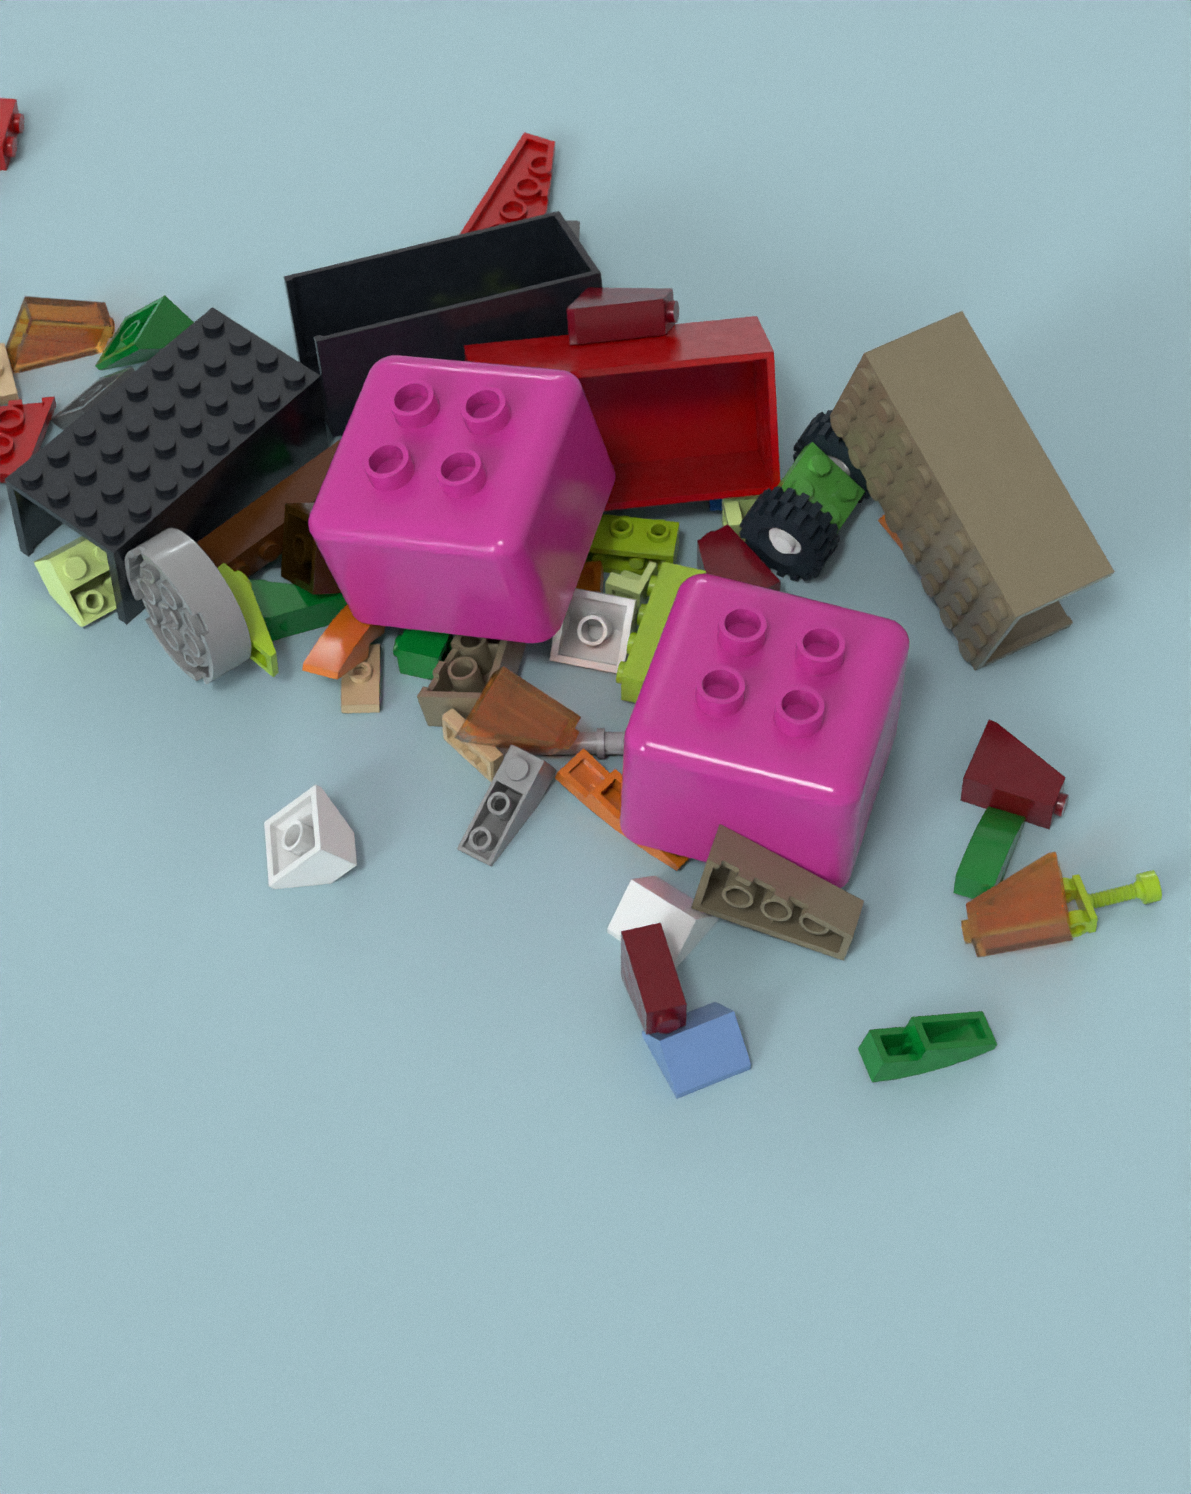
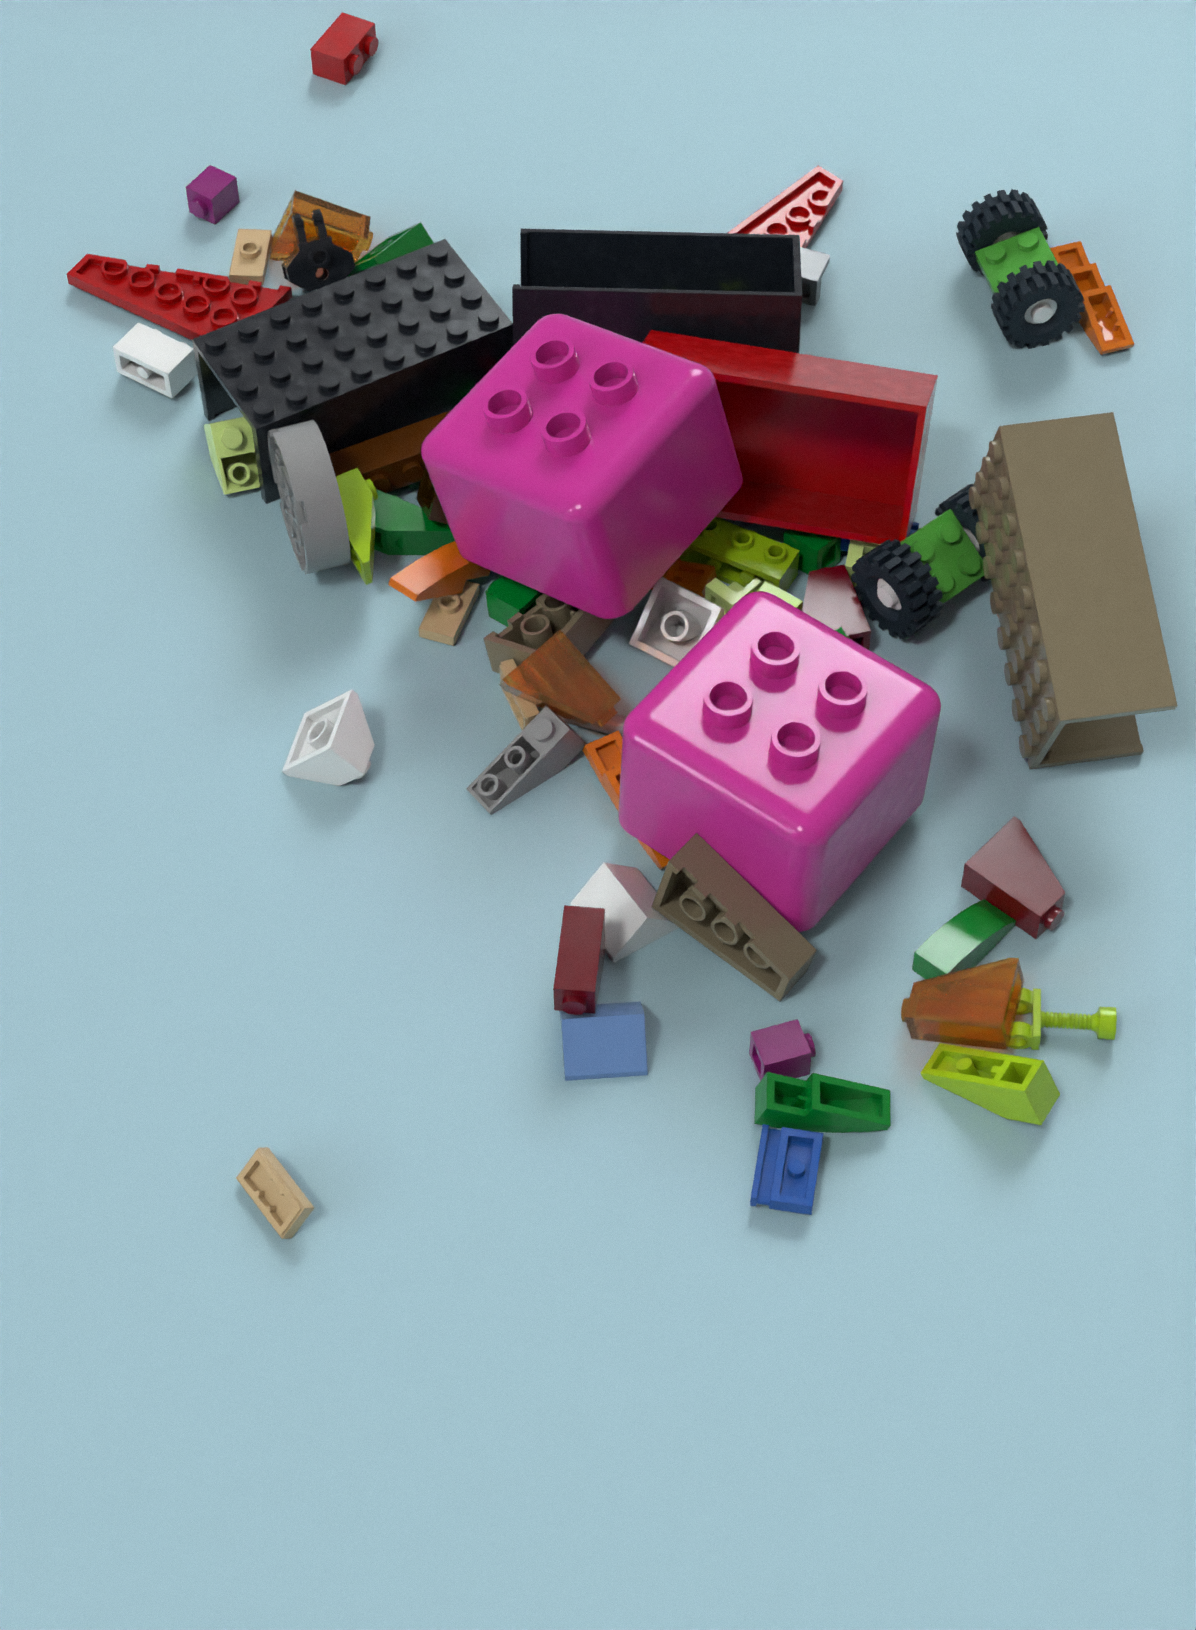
camera: 20 degrees right, 0 degrees up
(70, 361) = (315, 253): none -> black hinge
(456, 1293) = (275, 1193): none -> tan plate
(621, 314) = (804, 338): dark red slope -> none
(693, 518) = (815, 549): none -> green panel
(788, 205) = (1030, 290): none -> black plate
(838, 198) = (1102, 315): none -> orange slope
(869, 1006) = (782, 1050): none -> magenta brick
(921, 1114) = (787, 1169): none -> blue plate
(1076, 972) = (999, 1082): none -> lime slope

